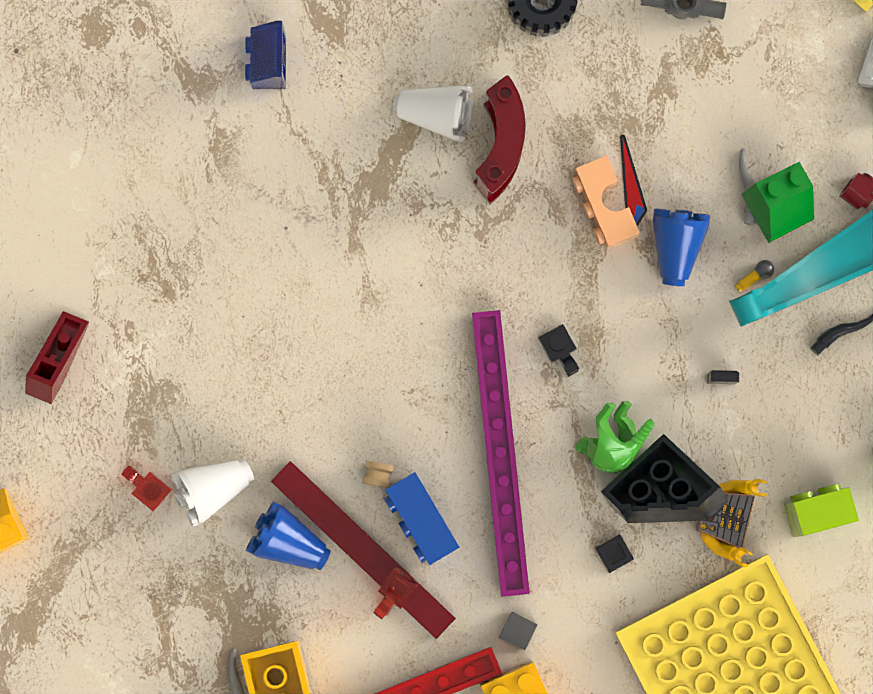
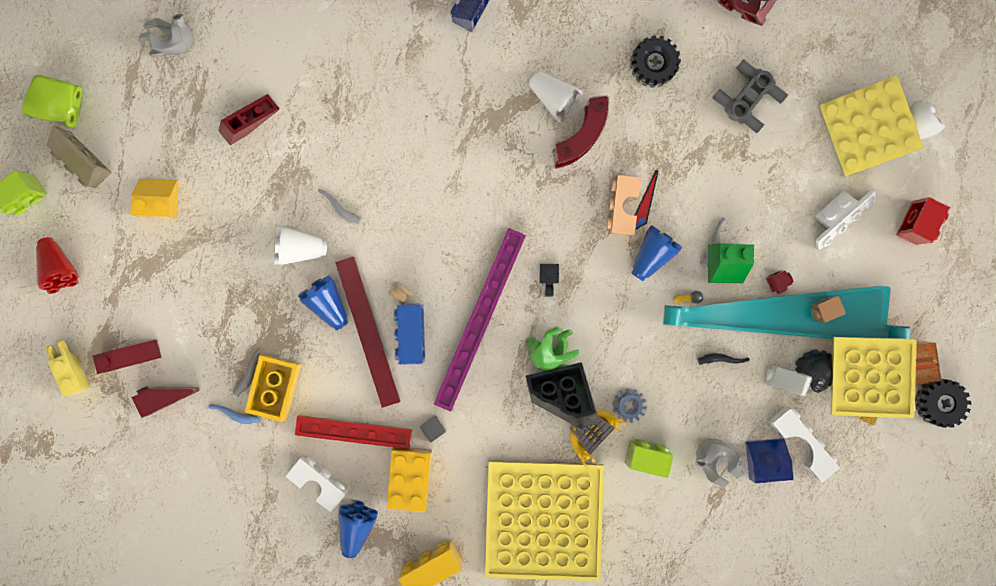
camera: 30 degrees right, 5 degrees up
(148, 490) = (261, 227): clear red plate -> none
(243, 411) = (345, 214): none -> light grey animal
(396, 591) = (372, 367): clear red plate -> none
(614, 553) = (514, 414): black tile -> none
(722, 377) = (635, 347): black tile -> none
(765, 450) = (637, 403): none -> sand blue gear

